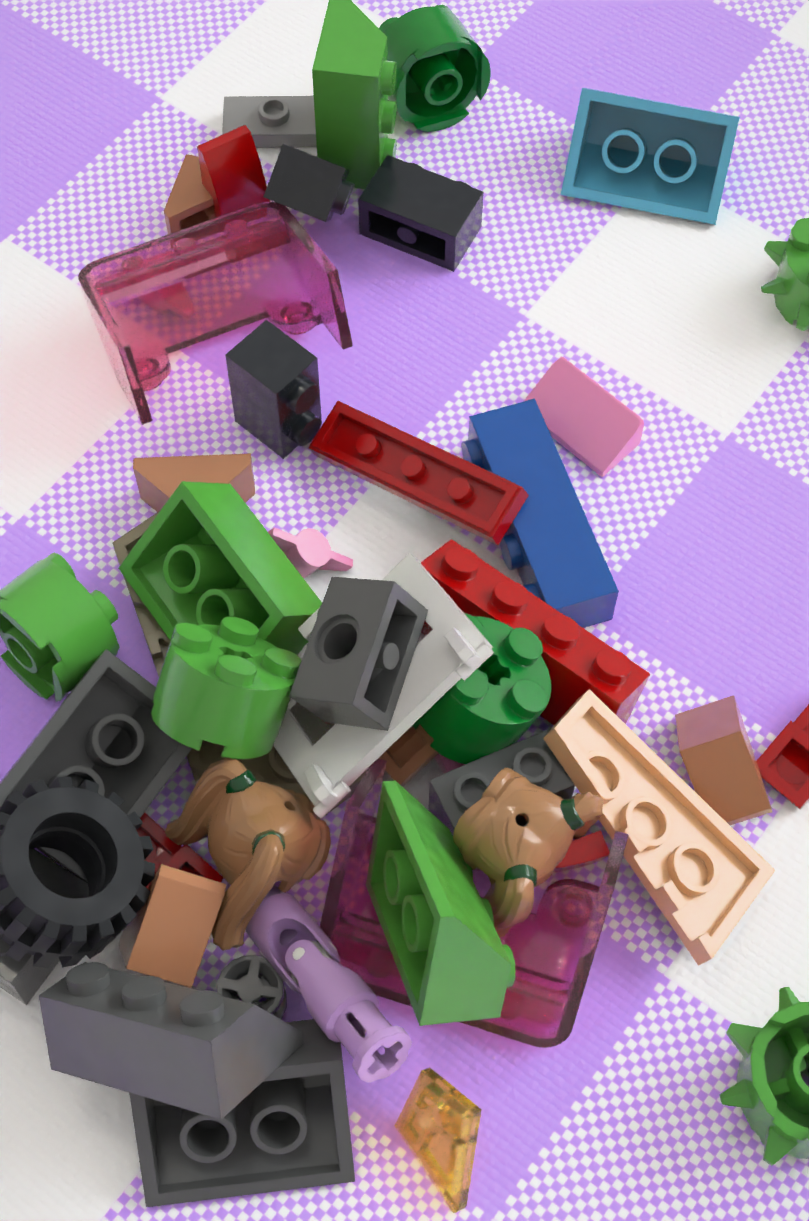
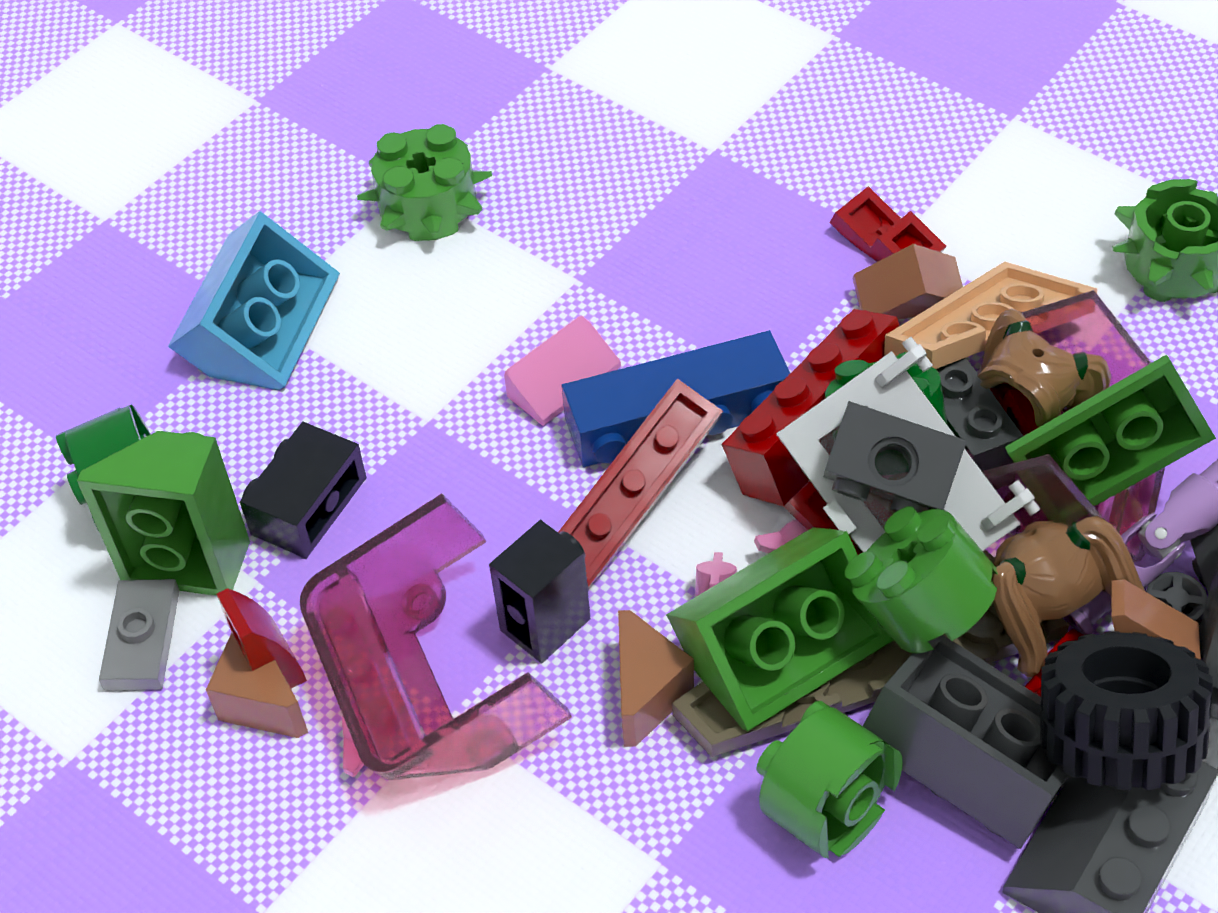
camera: 85 degrees left, 10 degrees down
(309, 184) = (281, 557): black brick -> none

